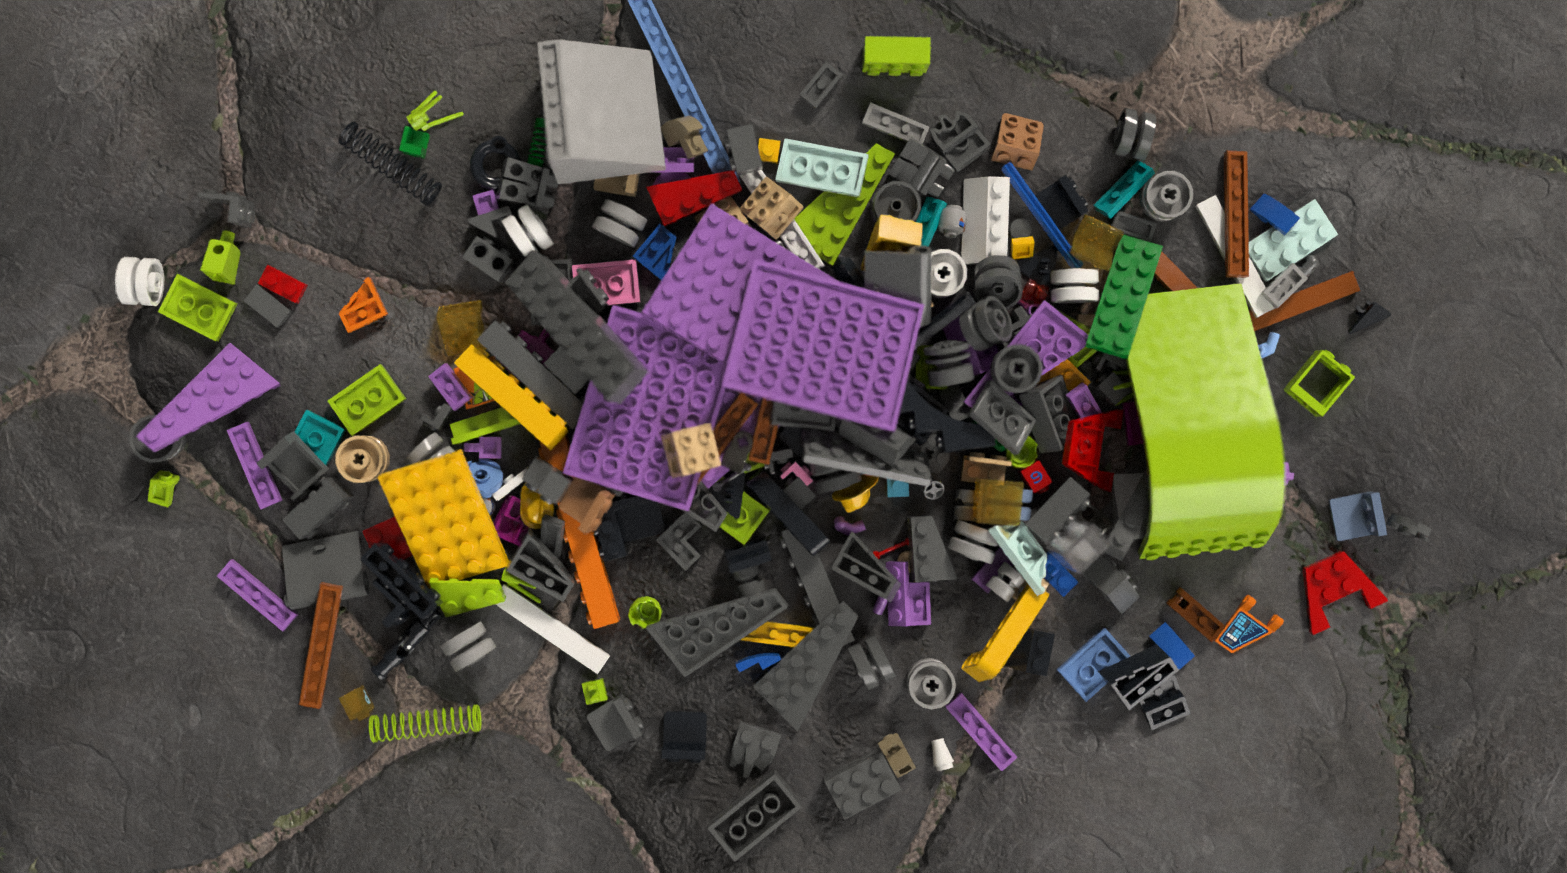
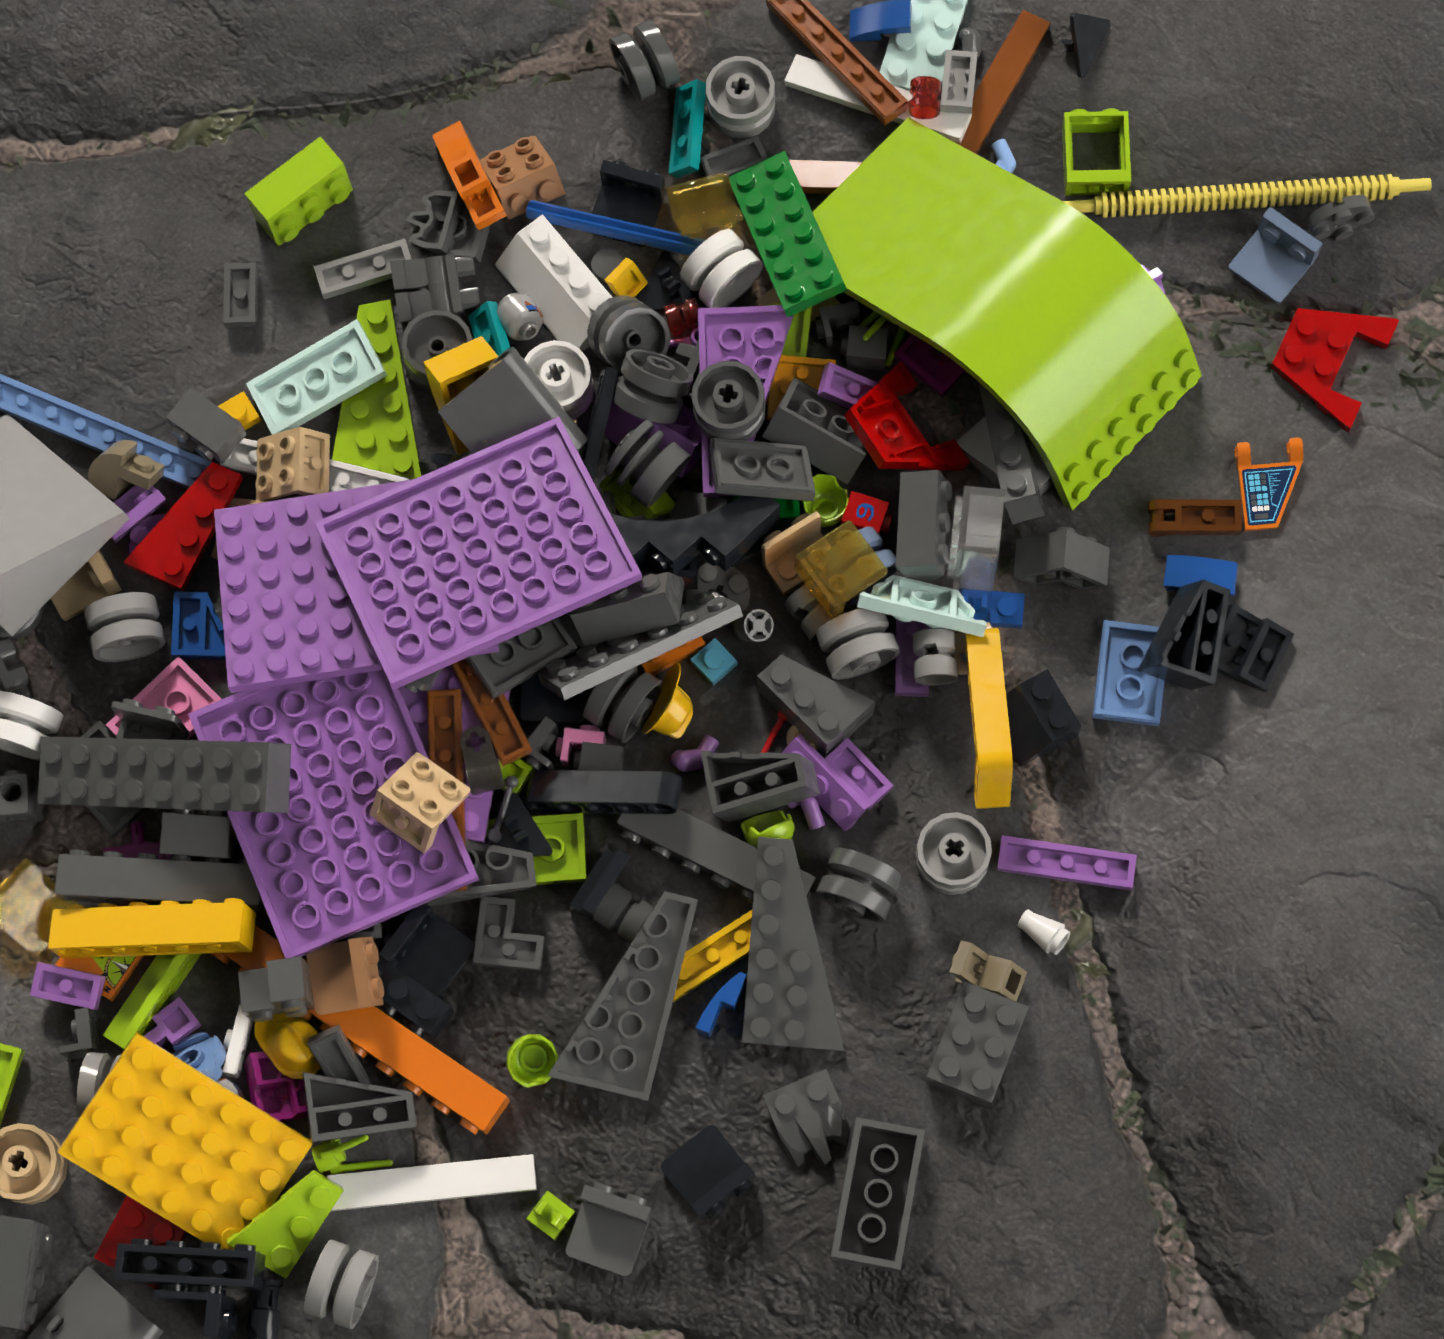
camera: 30 degrees left, 15 degrees down
(852, 595) = (768, 825): none -> lime hair
(990, 120) = (469, 175): none -> orange slope
(1259, 280) = (924, 97): none -> clear red wheel
(1373, 470) = (1296, 193): none -> light yellow hose

